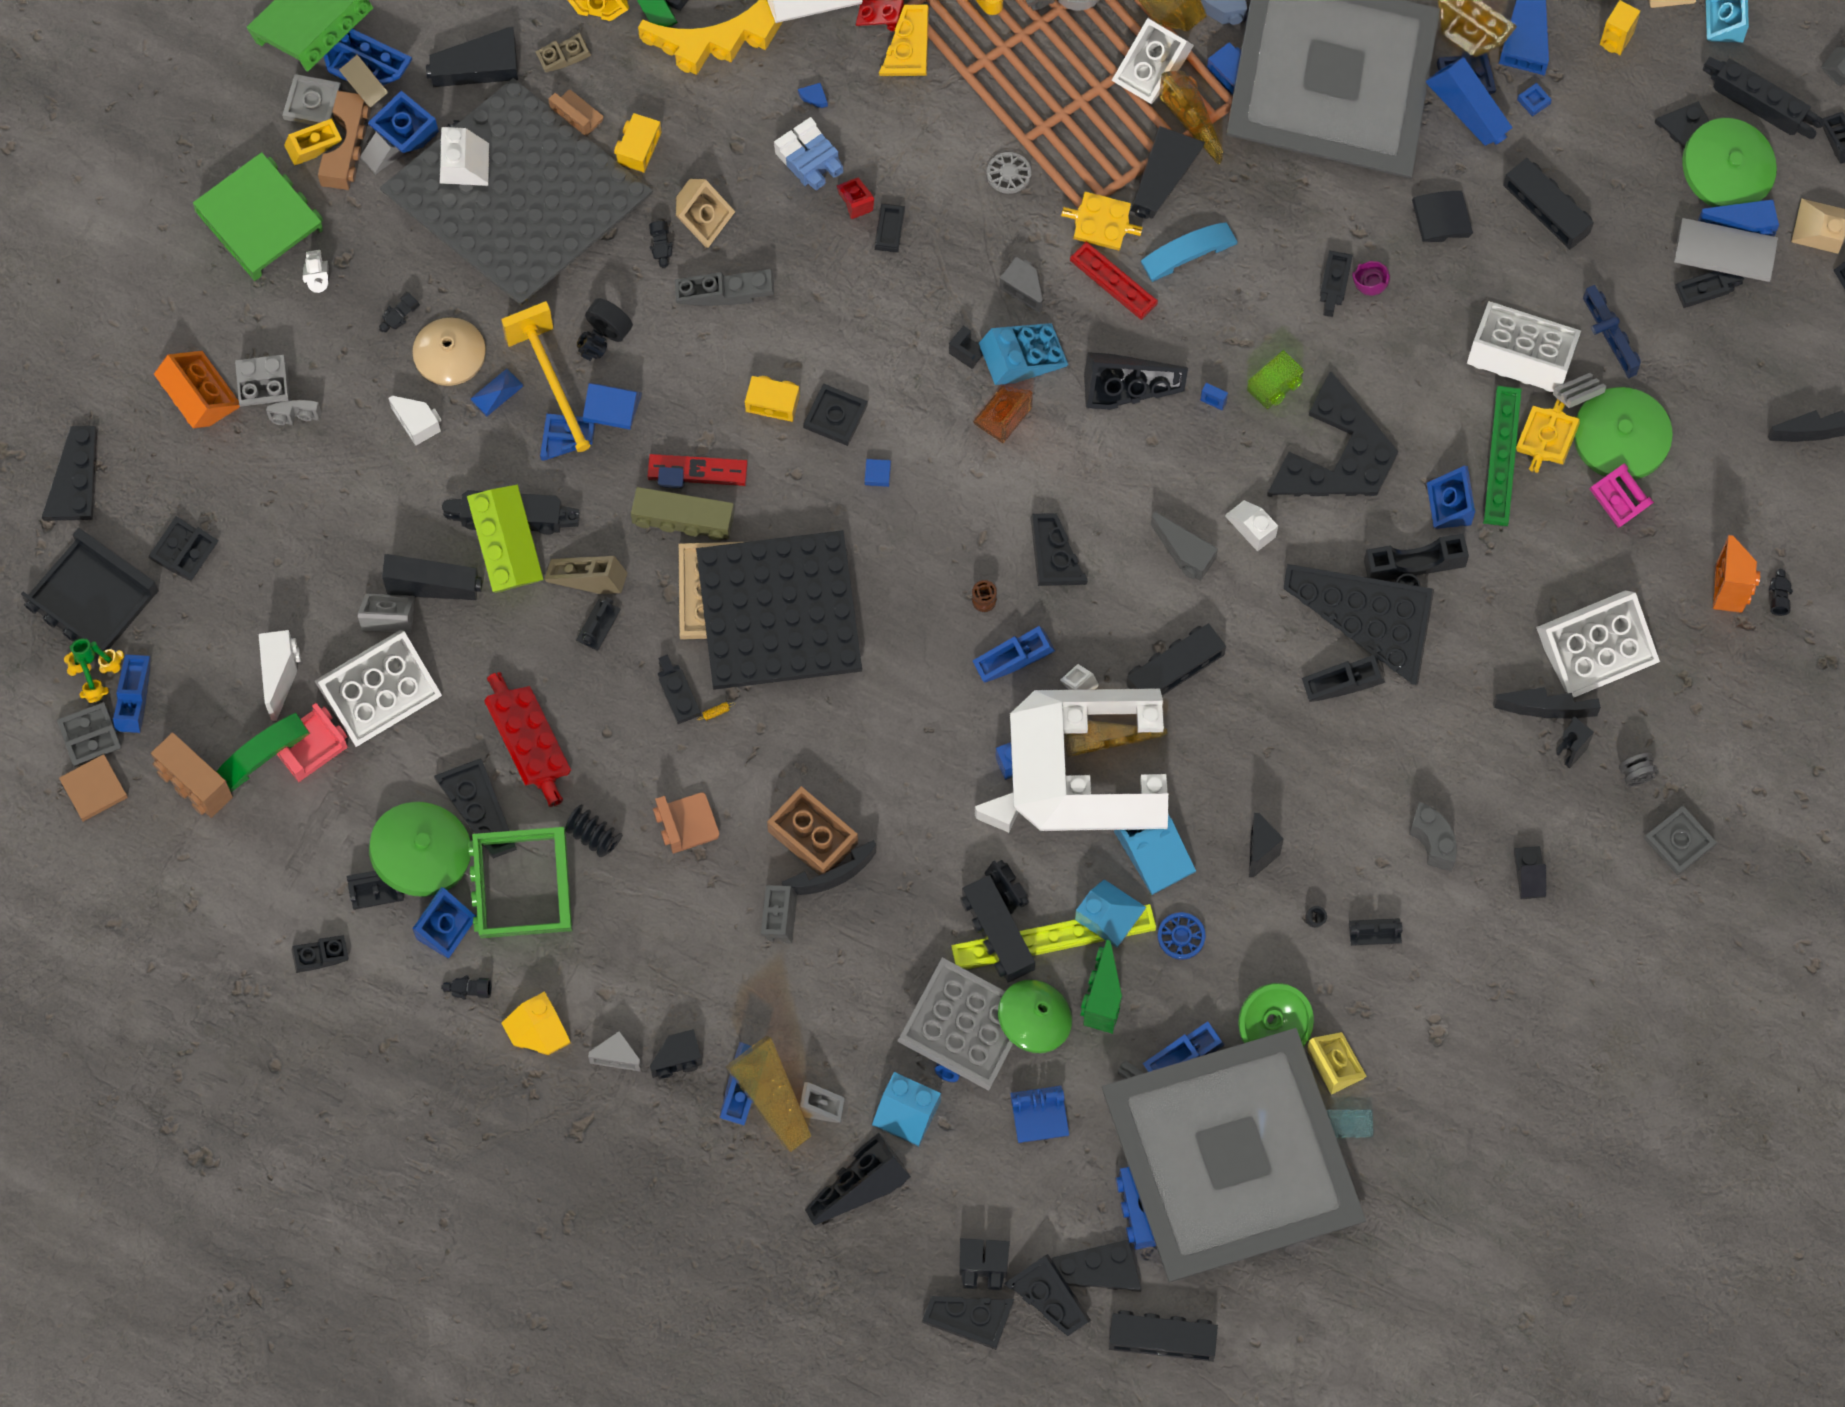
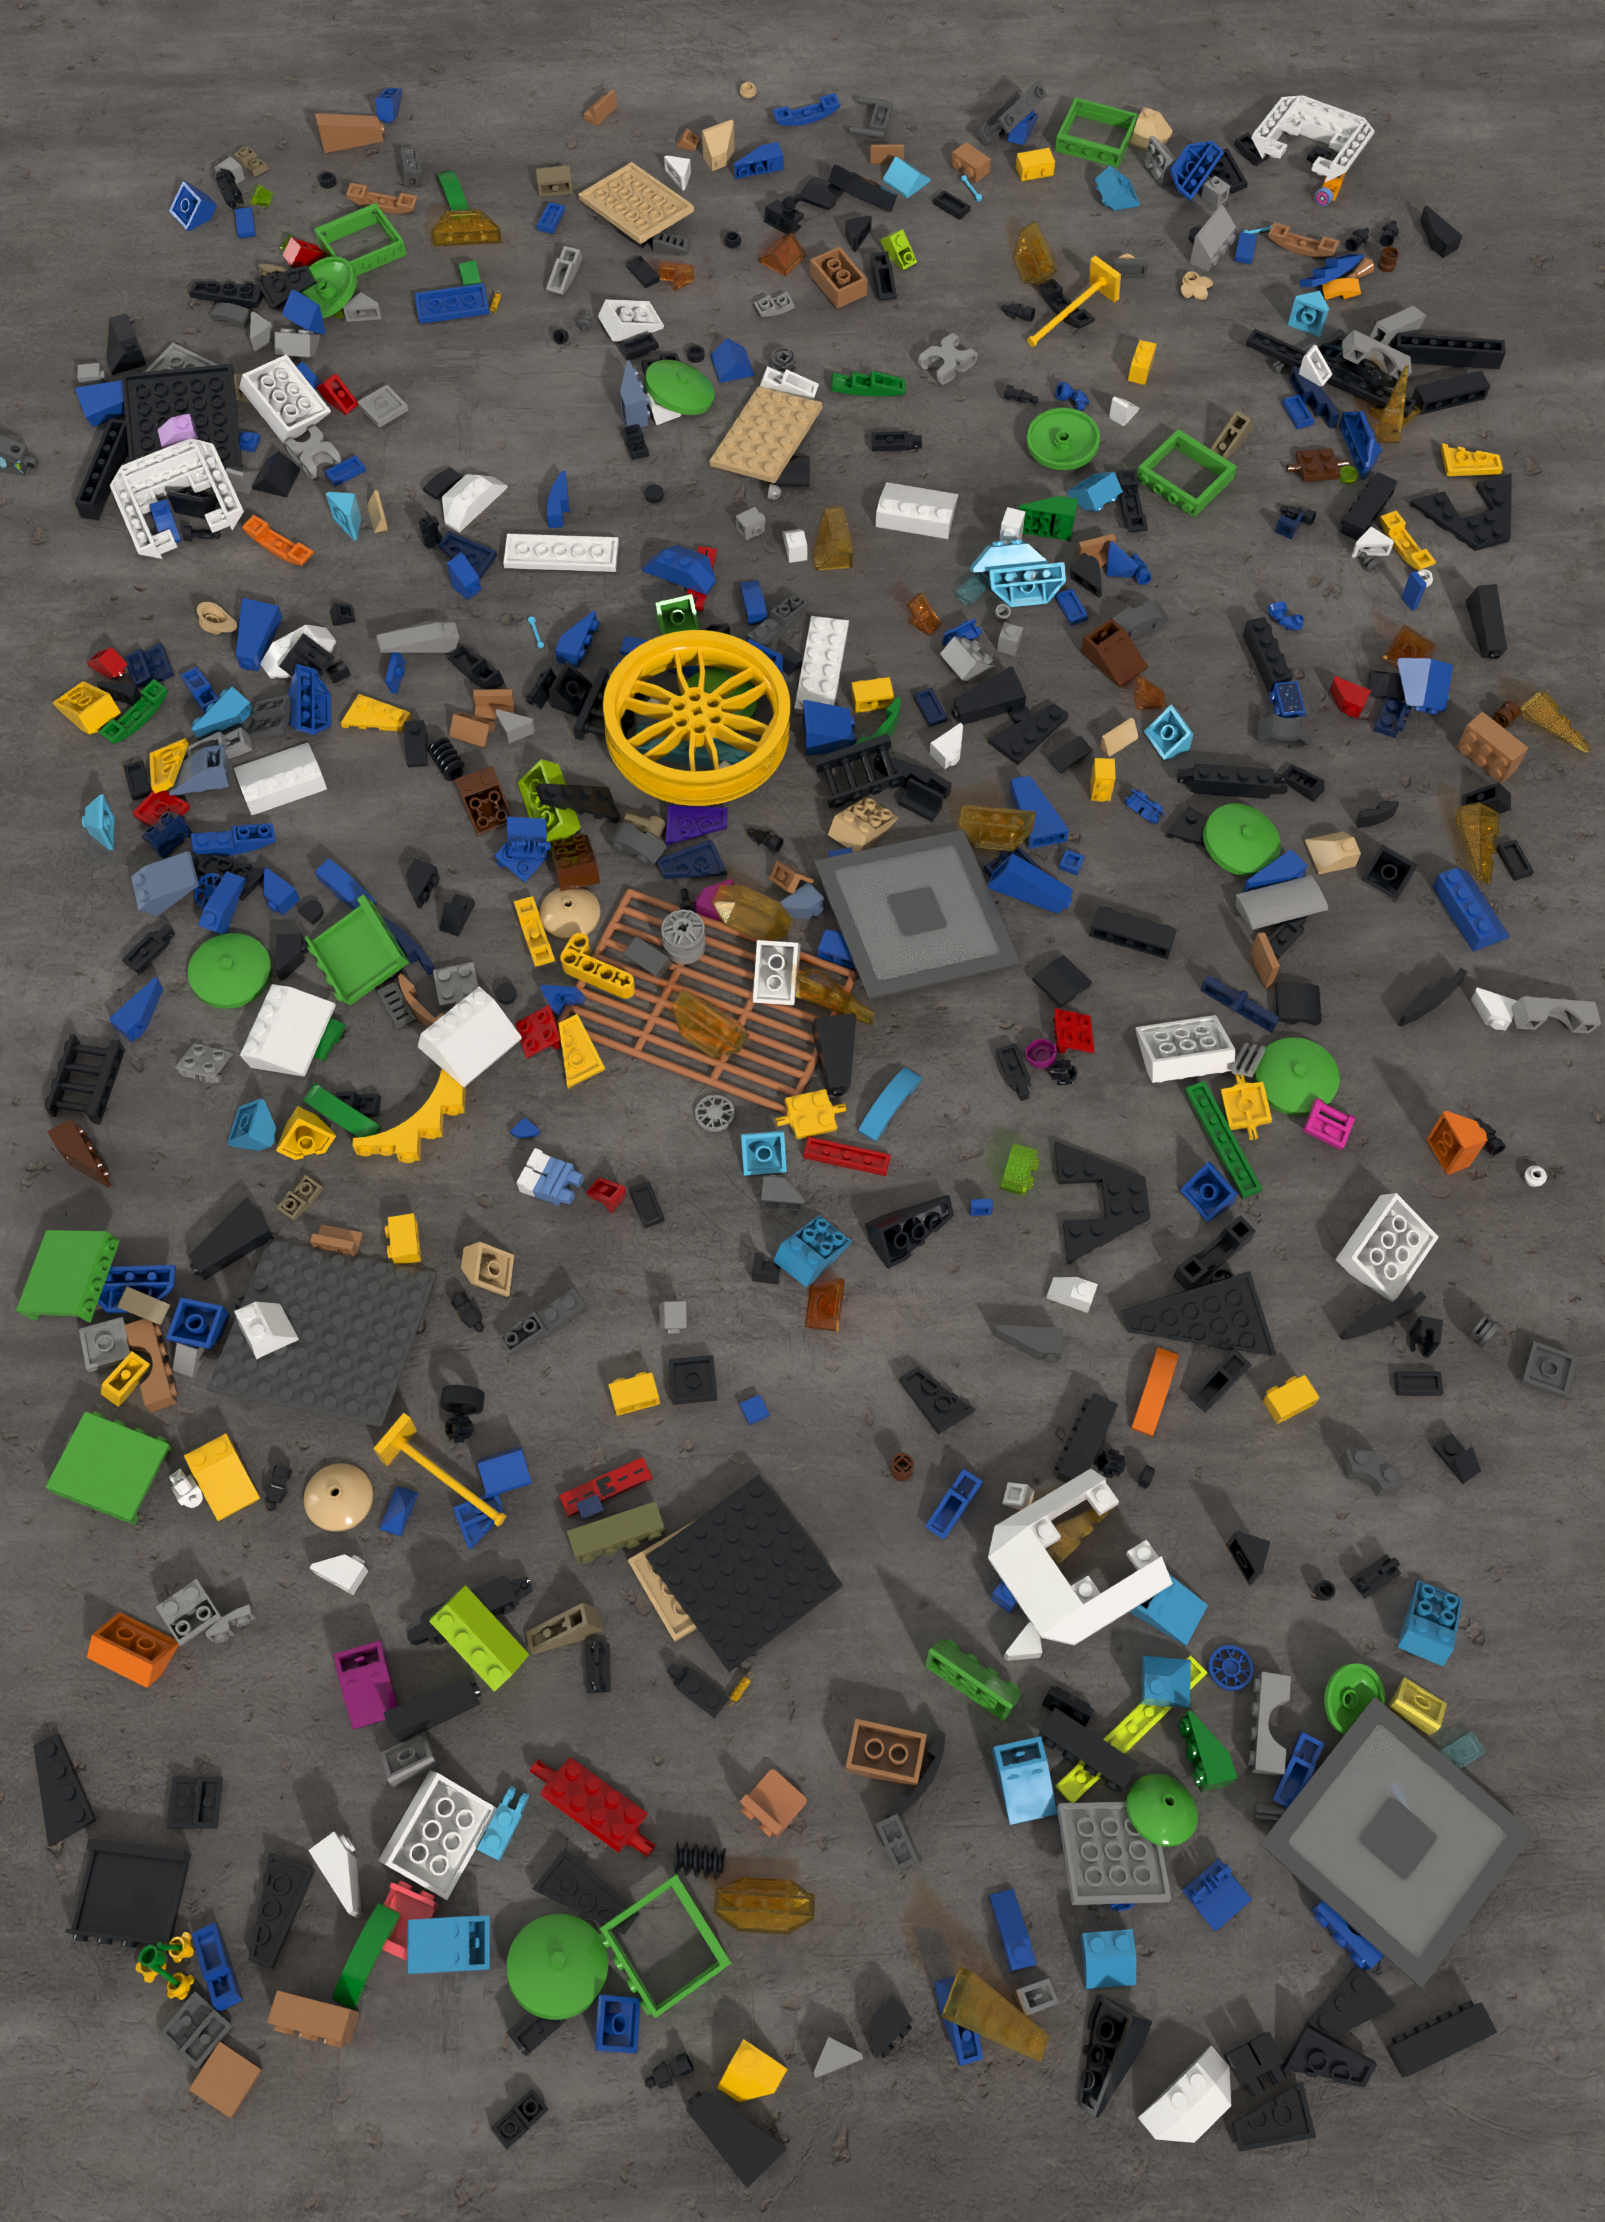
camera: 30 degrees left, 5 degrees down
(216, 667) = (280, 1900): none -> black wing
(336, 779) = (448, 1944): none -> dark azure slope
(354, 277) = (222, 1477): none -> yellow slope
(384, 524) = (366, 1683): none -> magenta slope
(439, 711) = (502, 1826): none -> medium azure hinge
(494, 1072) = (737, 2140): none -> black slope
(626, 898) = (764, 1905): none -> clear yellow wedge
(834, 1042) = (1012, 1931): none -> blue slope
(850, 345) = (673, 1316): none -> light grey brick
(906, 1258) = (1191, 2101): none -> white wedge
(925, 923) = (1024, 1780): none -> dark azure slope
(930, 811) = (972, 1679): none -> bright green slope
(1032, 235) = (763, 1153): none -> medium azure slope
(1050, 80) = (708, 1026): none -> clear yellow wedge
(1185, 697) = (1111, 1463): none -> black gear
(1203, 977) = (1267, 1755): none -> light grey arch
(1212, 727) = (1146, 1476): none -> black tile
(1273, 655) = (1155, 1392): none -> orange slope
(1382, 308) = (1063, 1072): none -> black gear
(1398, 999) = (1430, 1623): none -> dark azure slope
(1401, 731) = (1290, 1399): none -> yellow brick
(1420, 272) = (1073, 1031): none -> red hinge
(1540, 785) = (1418, 1384): none -> black tile
(1648, 70) = (1151, 809): none -> blue hinge
(1664, 299) = (1264, 960): none -> medium nougat tile
(1674, 361) = (1298, 1002): none -> black slope
(1800, 661) = (1531, 1179): none -> white plate

